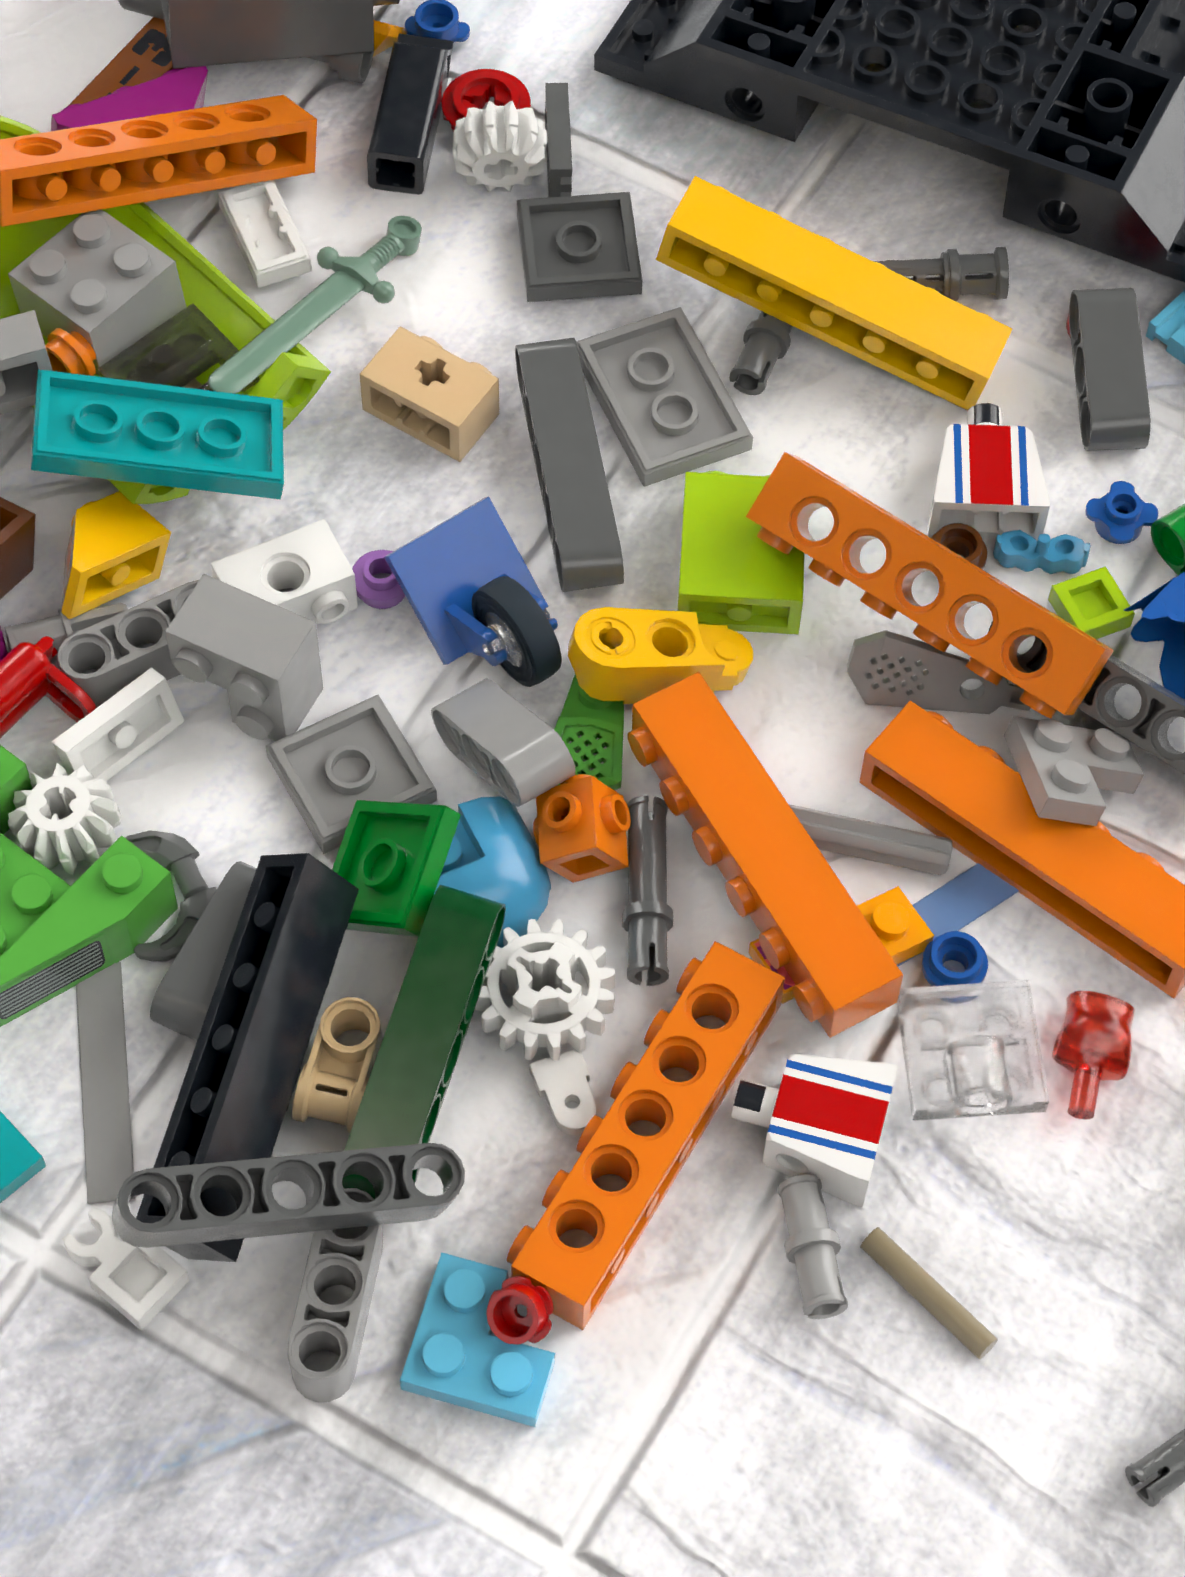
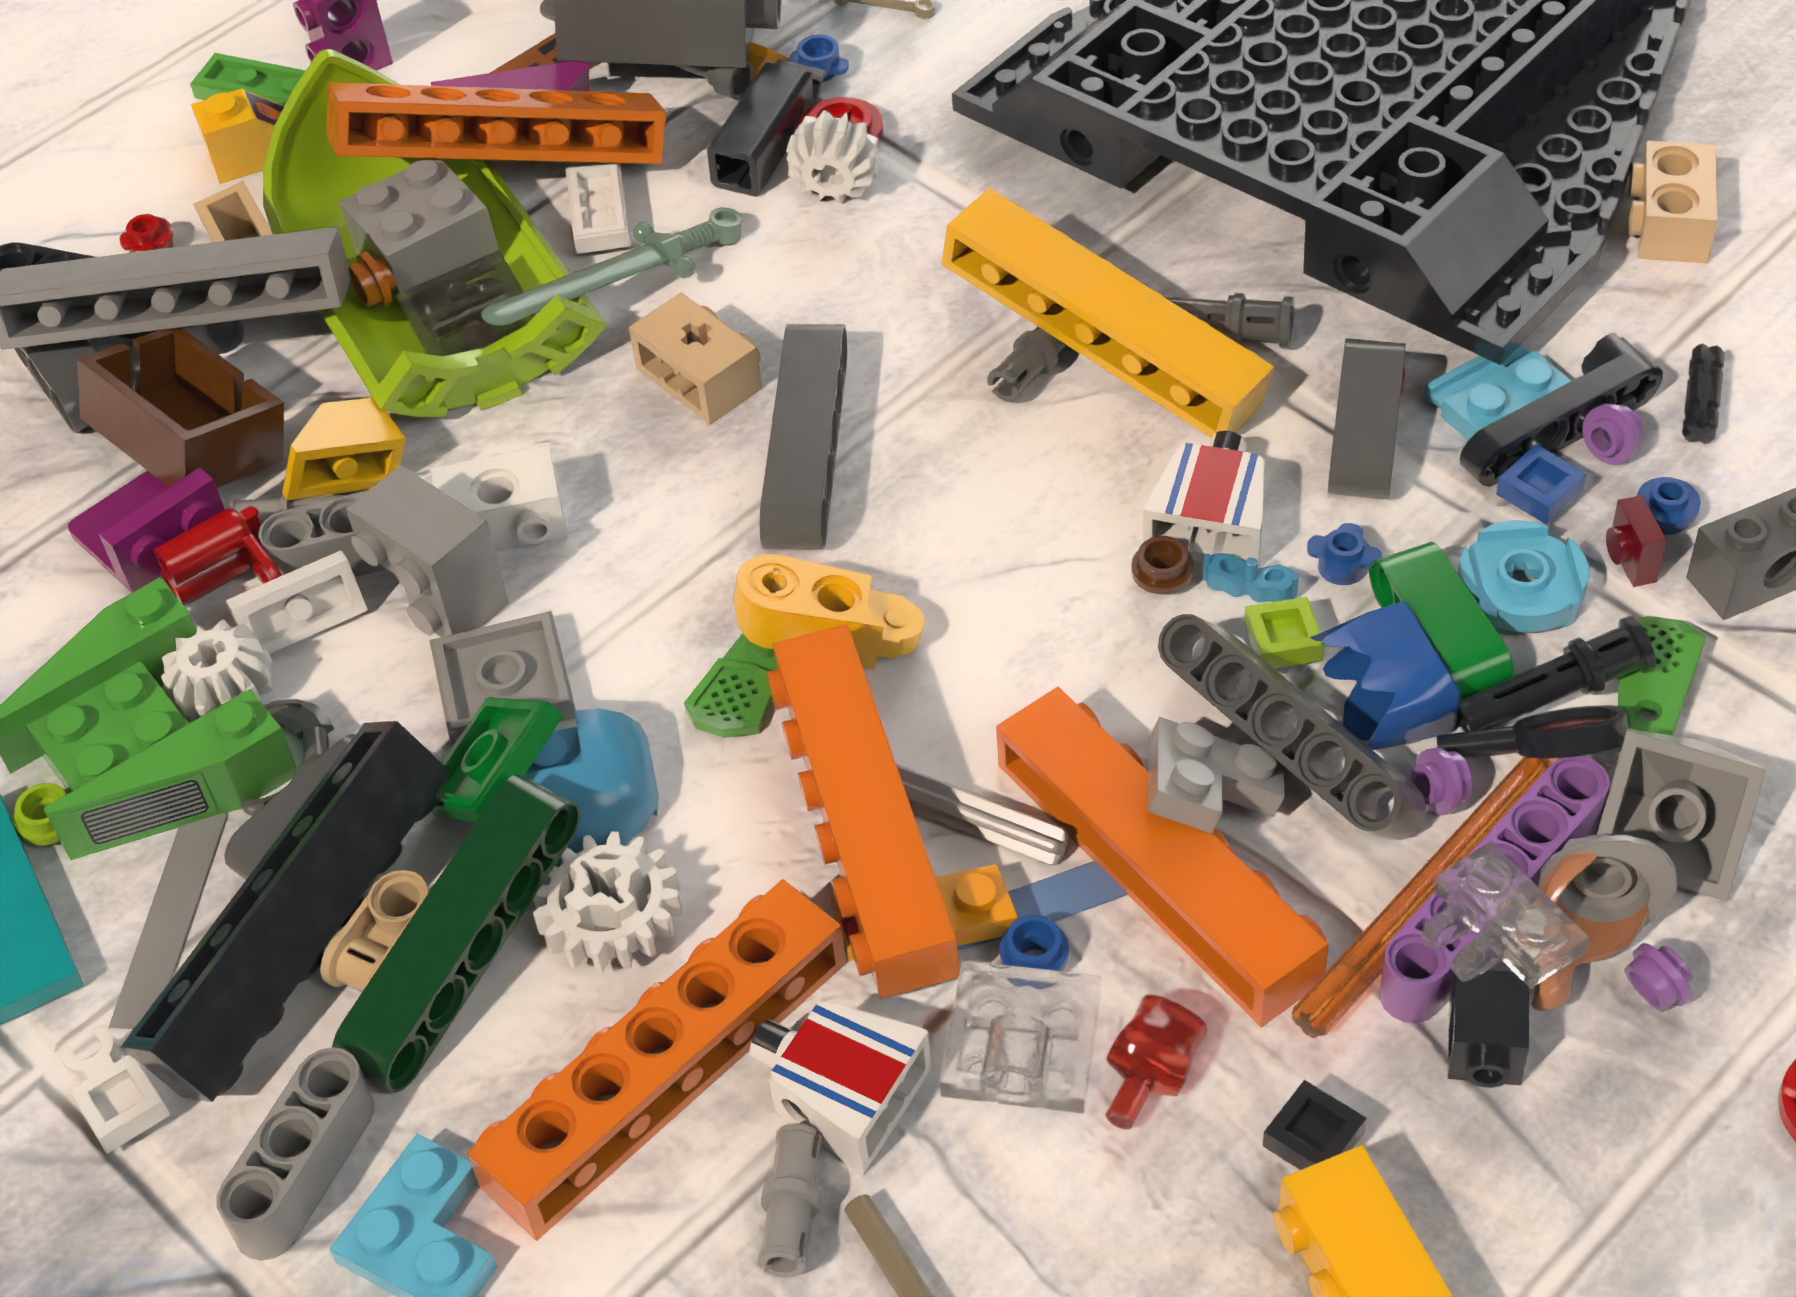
camera: 20 degrees right, 10 degrees down
(158, 434) = (411, 345): teal tile -> none
(260, 1214) = (233, 1010): dark grey beam -> none
(374, 591) = (594, 512): medium lavender plate -> none
(478, 595) = (671, 530): plate -> none
(503, 742) = (643, 664): light grey beam -> none
(508, 1323) = (463, 1202): red plate -> none
(559, 140) = (892, 165): dark grey tile -> none
(565, 1082) = (600, 996): white piece -> none
(579, 247) = (883, 253): dark grey plate -> none
(582, 828) = (693, 757): orange brick -> none
(647, 914) = (736, 849): dark grey pin -> none
(663, 396) = (921, 392): light grey tile -> none
(726, 568) = (942, 532): lime panel -> none
(800, 489) = (1225, 664): orange brick -> none
(940, 681) = (1105, 678): light grey piece -> none

